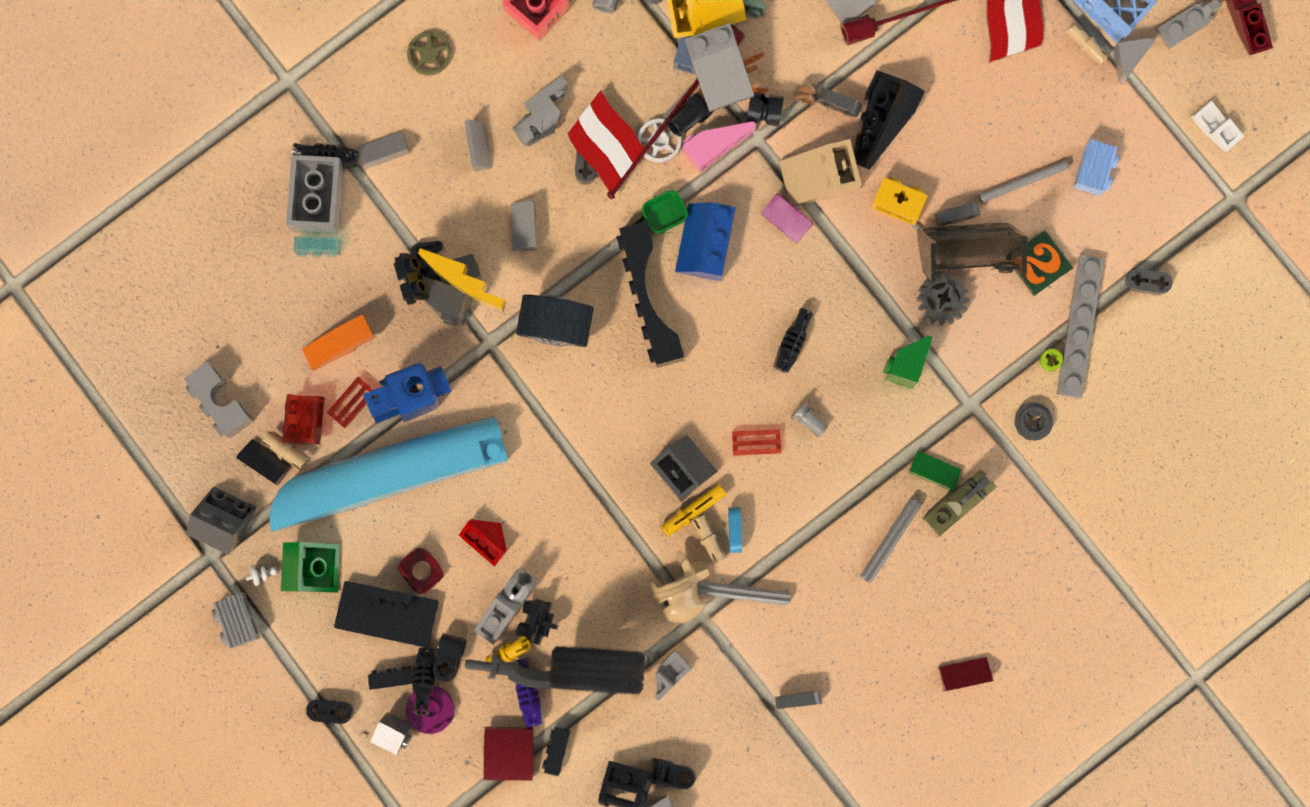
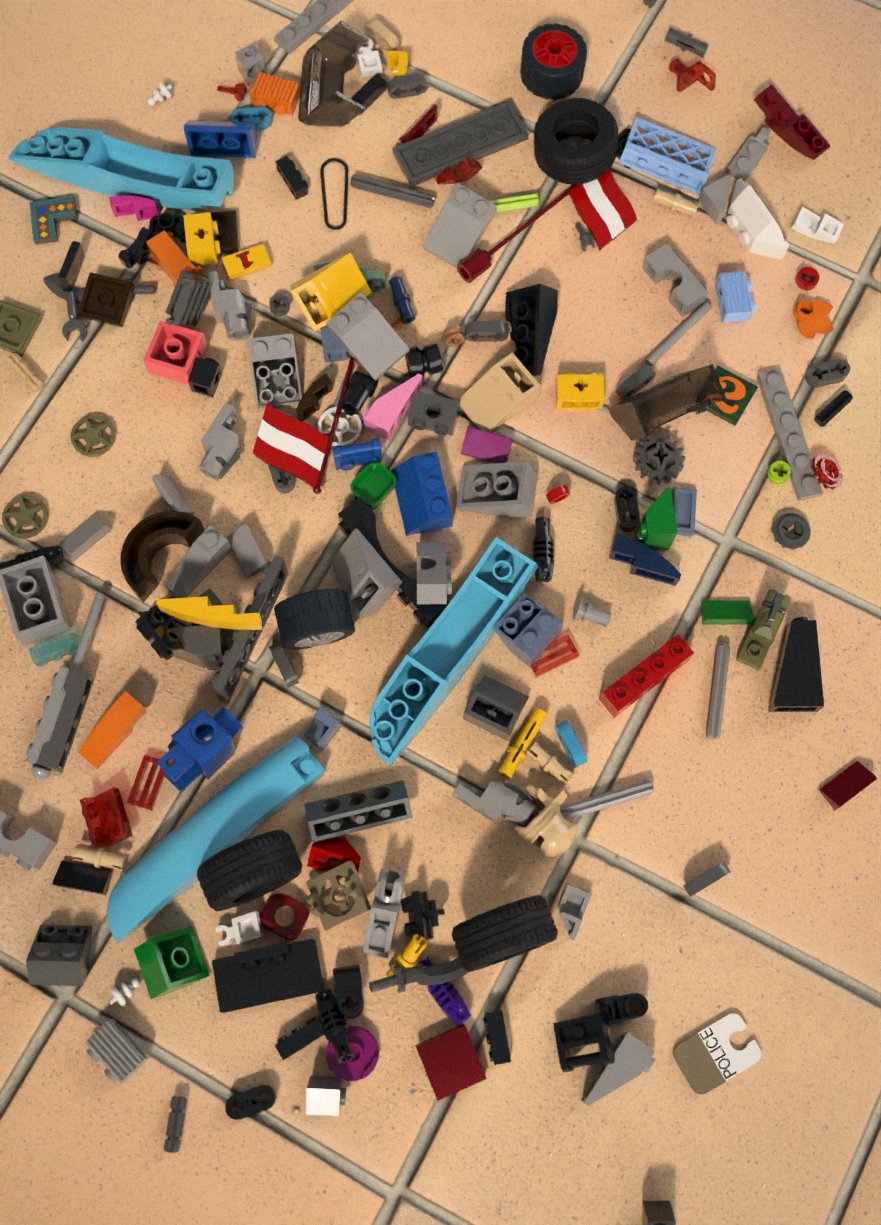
camera: 30 degrees left, 10 degrees down
(261, 701) = (175, 1124): none -> dark grey axle
(305, 303) = (63, 707): none -> piece
(337, 107) = (24, 516): none -> olive wheel
(382, 566) = (244, 929): none -> white plate
(404, 521) = (249, 870): none -> black tyre
(433, 181) = (147, 539): none -> dark brown brick
(471, 326) = (237, 657): none -> dark grey plate
(474, 220) = (198, 562): none -> light grey slope
(487, 570) = (354, 889): none -> dark tan piece
(512, 348) = (283, 664): none -> dark grey beam
(521, 421) = (322, 729): none -> sand blue panel
(521, 508) = (358, 811): none -> dark grey brick
(555, 38) = (205, 376): none -> black brick
(616, 297) = (364, 575): none -> light grey slope
(622, 59) = (275, 370): none -> light grey slope
(639, 106) = (309, 402): none -> dark brown slope
(648, 552) = (498, 800): none -> light grey plate
(652, 177) = (356, 455): none -> blue plate
(664, 397) = (447, 649): none -> medium azure slope
(680, 321) = (433, 573): none -> light grey arch
(743, 410) = (528, 629): none -> sand blue slope
(744, 153) = (424, 404): none -> dark grey brick
(773, 36) = (401, 299): none -> dark blue pin
(777, 265) = (498, 489): none -> light grey slope
(831, 293) = (558, 494): none -> red tile
(831, 498) = (646, 675): none -> red brick
(881, 390) = (644, 560): none -> dark blue slope
(895, 336) = (621, 509): none -> black beam
(942, 359) = (685, 509): none -> sand blue tile
(972, 554) = (798, 672): none -> black slope
(979, 45) = (585, 239): none -> dark grey hand
(1045, 105) = (667, 265): none -> light grey arch
(1100, 371) = (824, 463): none -> clear red gear
(1136, 319) = (833, 408): none -> black axle
(1151, 99) = (754, 223): none -> white wedge
(1164, 224) = (816, 318): none -> orange plate
(1178, 177) = (807, 278): none -> red tile

